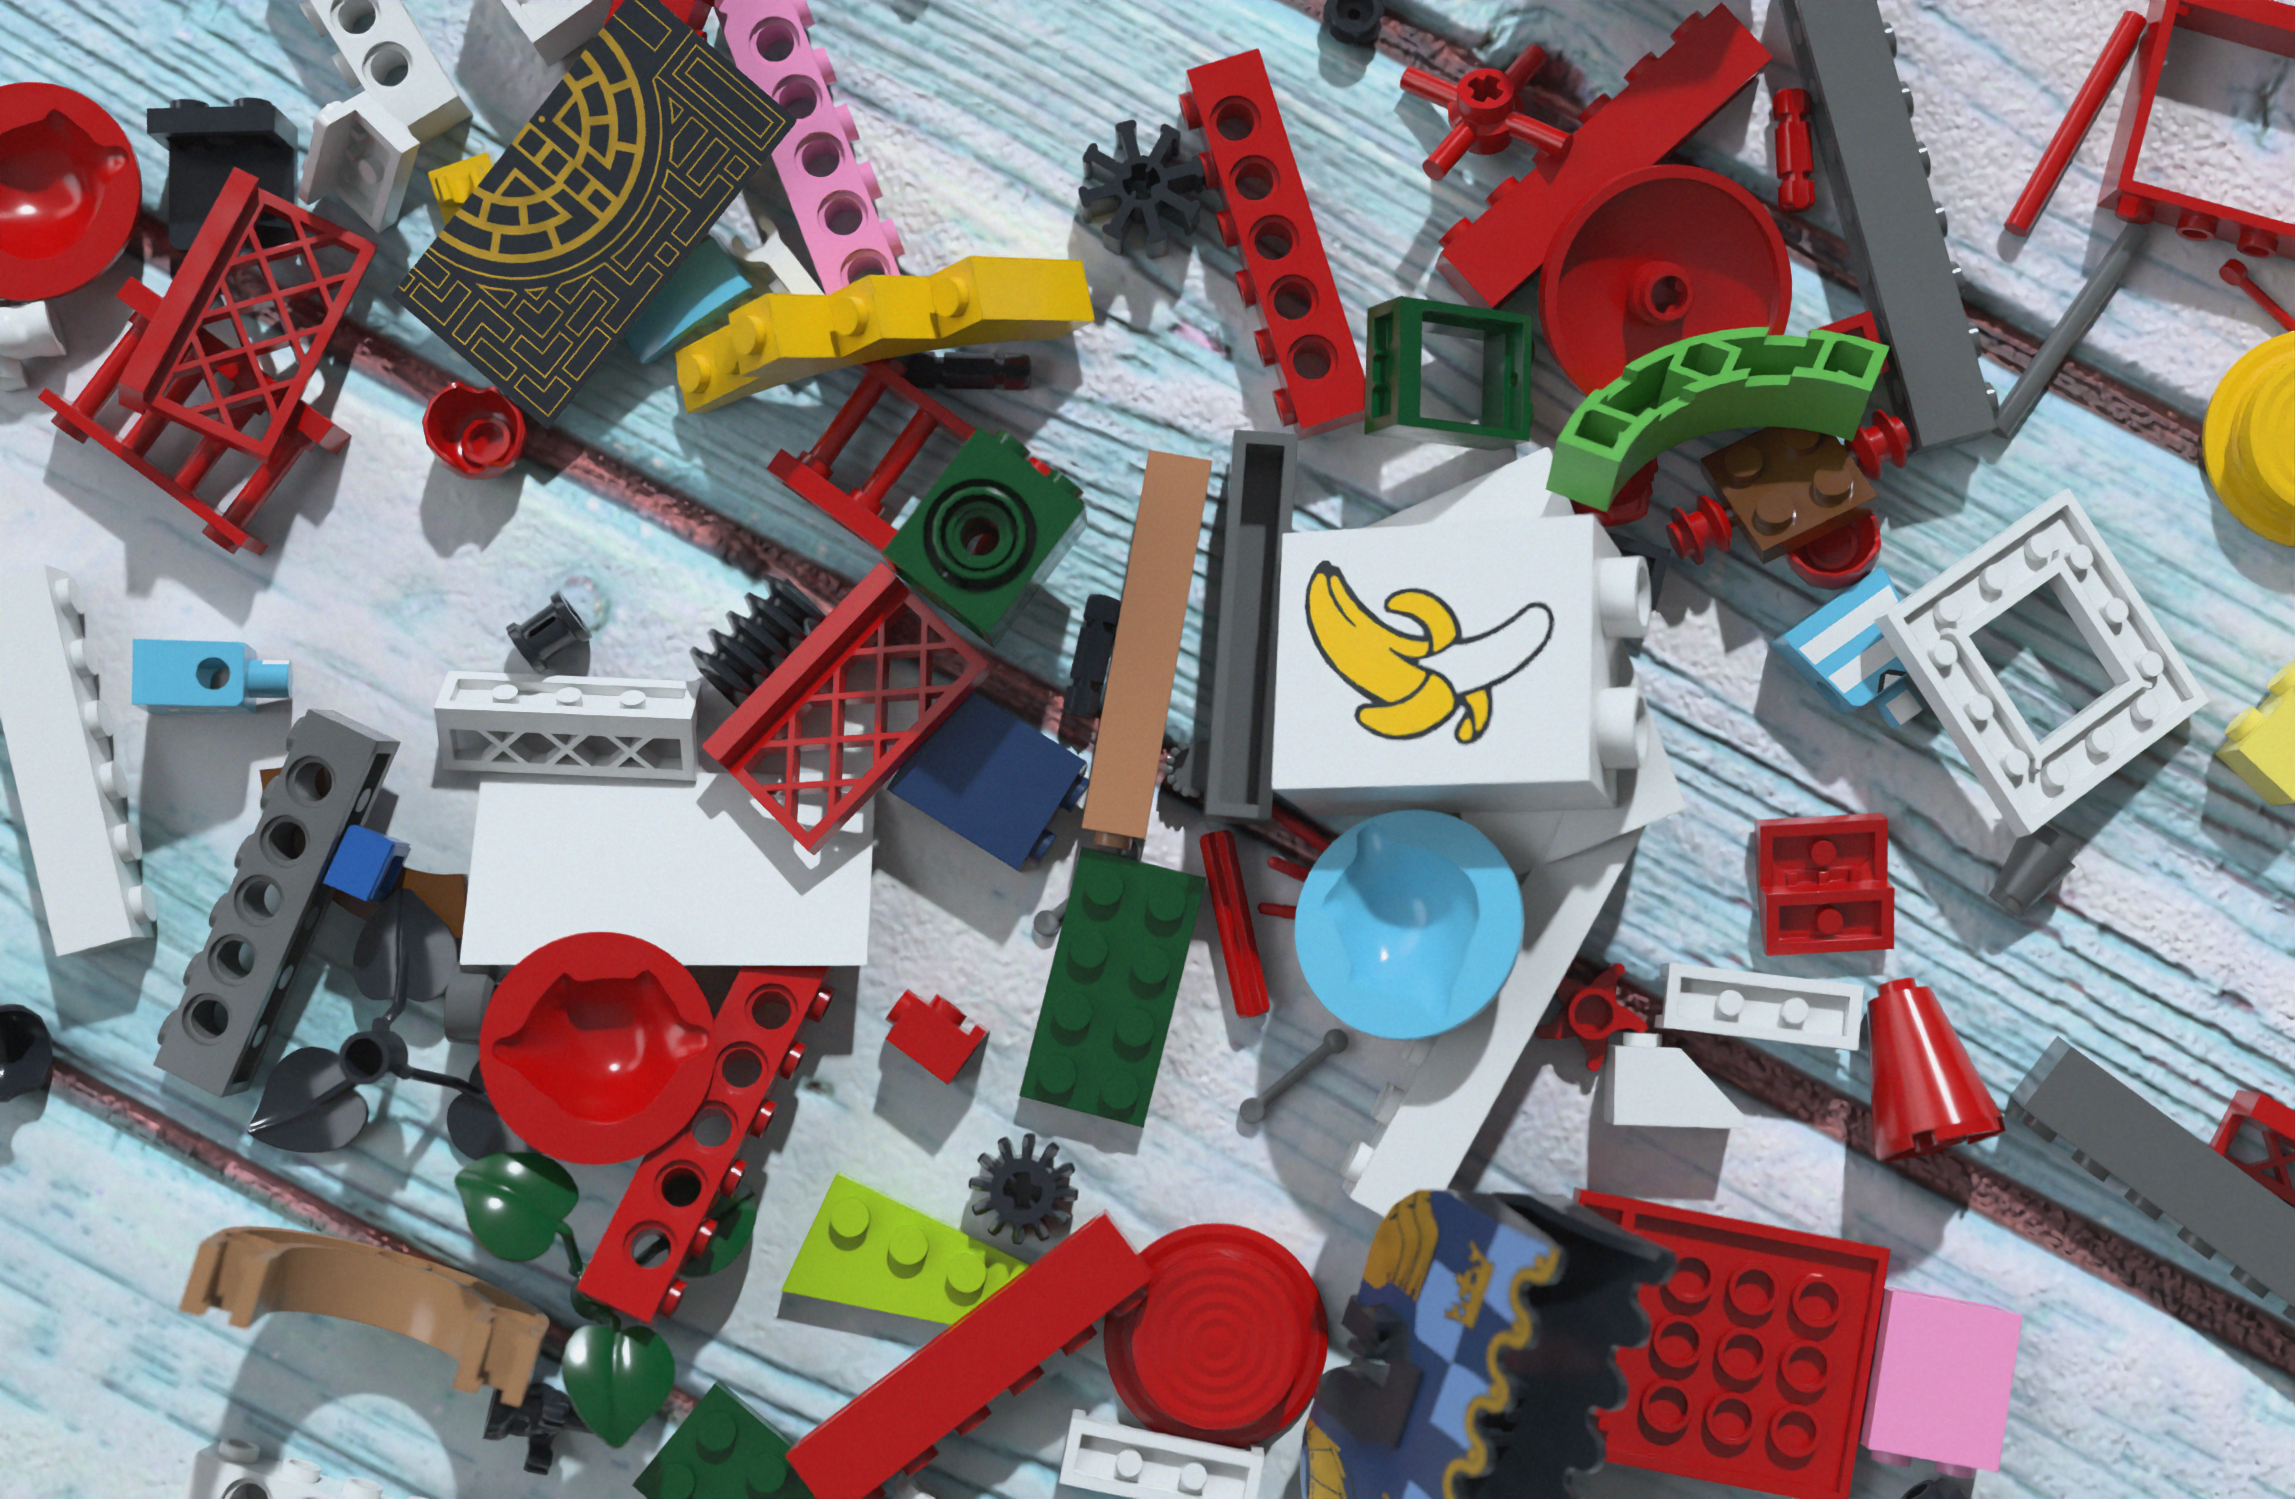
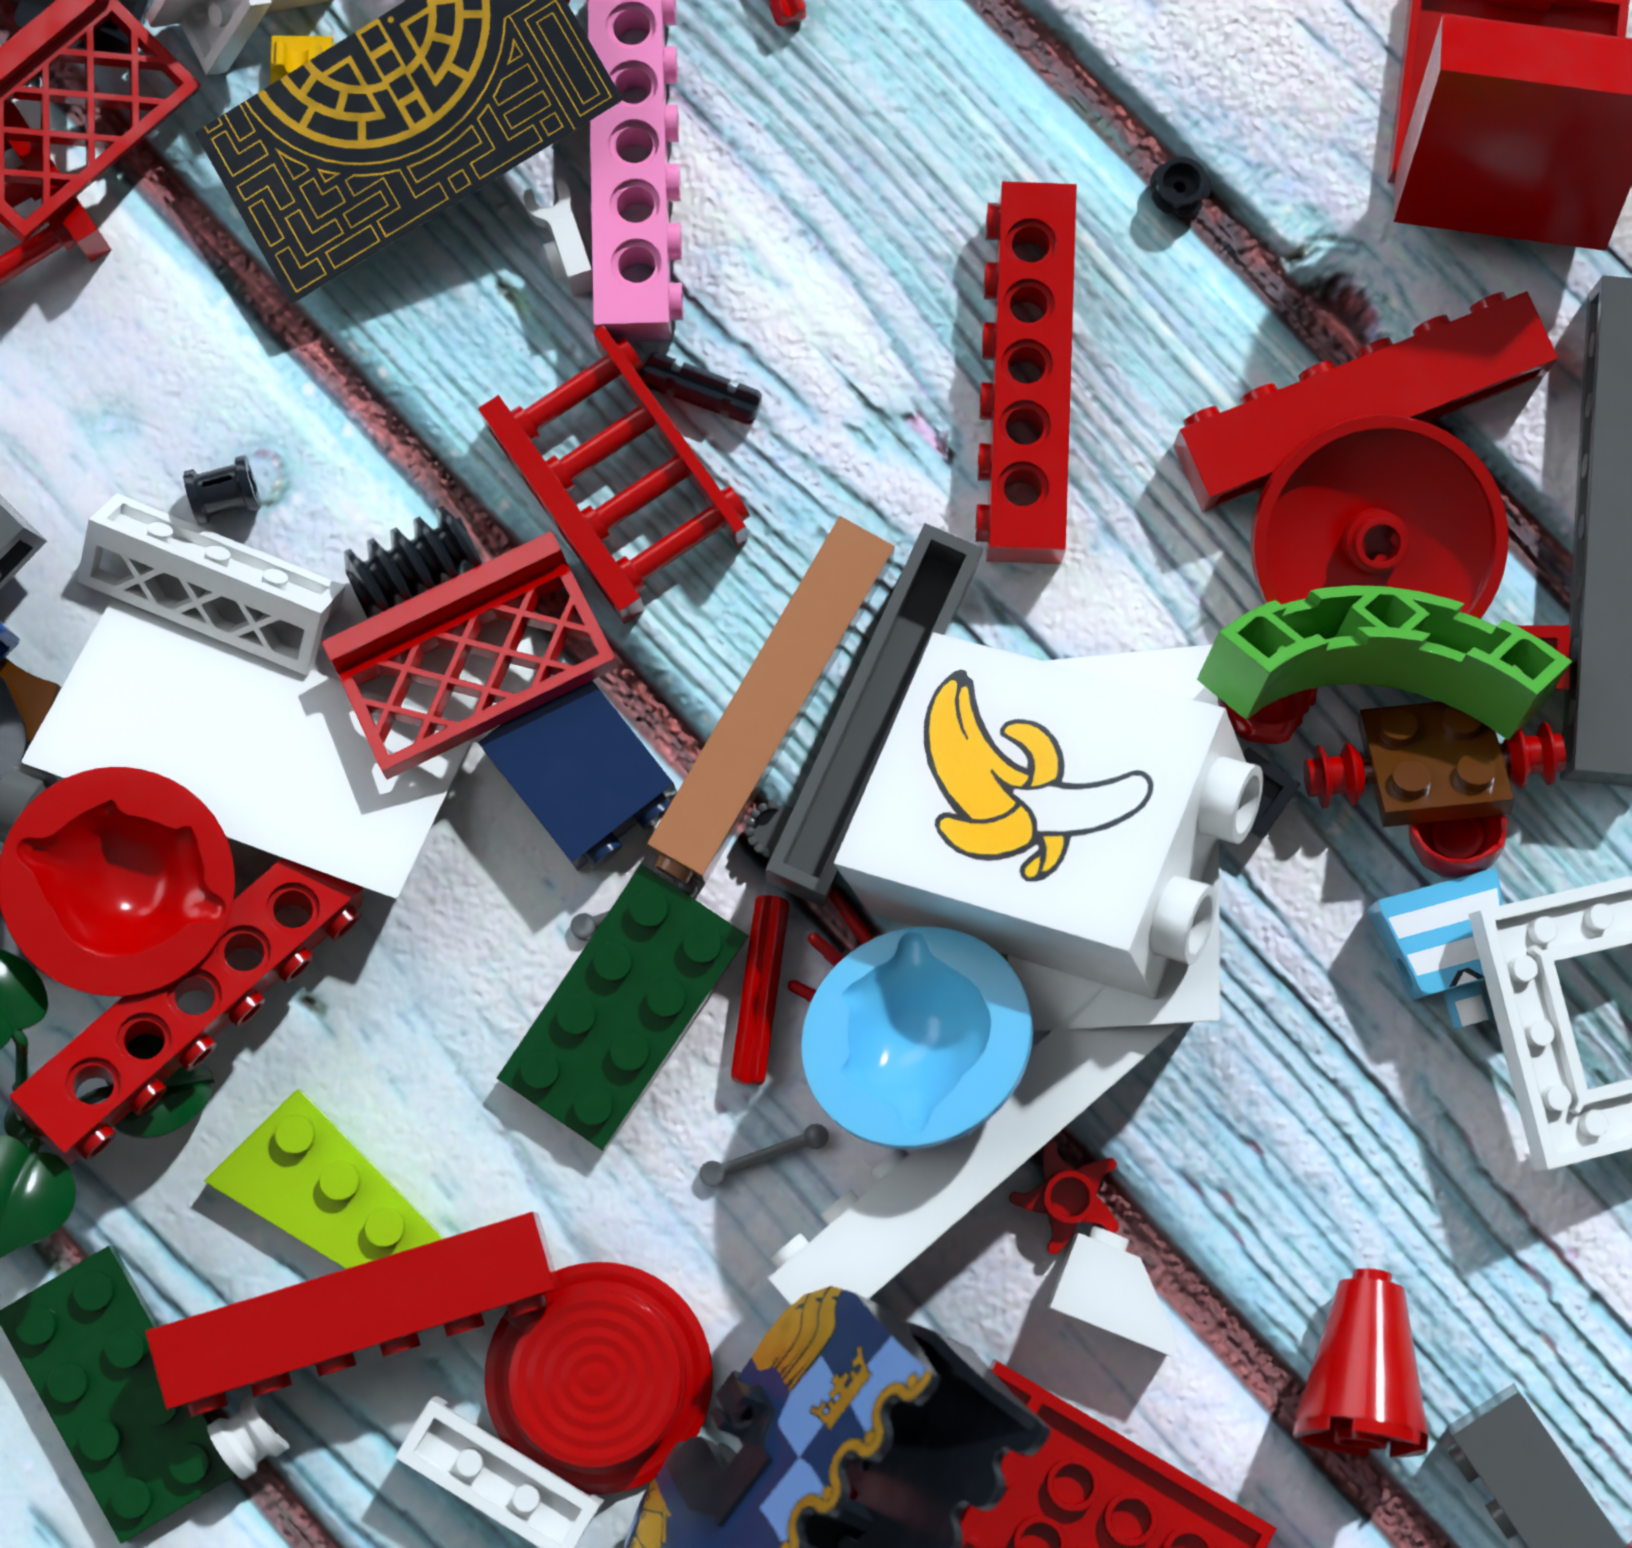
camera: 20 degrees right, 5 degrees down
(475, 431) = (224, 282): red hair -> none
(693, 297) = (470, 230): medium azure slope -> none
(882, 318) = (636, 305): yellow arch -> none
(933, 1034) = (437, 991): red brick -> none
(995, 493) = (666, 496): dark green brick -> none
(1006, 1201) = (447, 1176): black gear -> none
(1091, 656) = (716, 692): black axle -> none
(1165, 192) = (945, 281): black gear -> none
(1395, 373) = (1093, 526): dark green window -> none
(1485, 112) = (1269, 317): red bar -> none
(1761, 1006) = (1233, 1246): white container -> none
(1793, 150) = (1551, 454): red axle -> none
(1824, 884) = (1337, 1155): red slope -> none
(2033, 869) = (1545, 1211): dark grey cone -> none

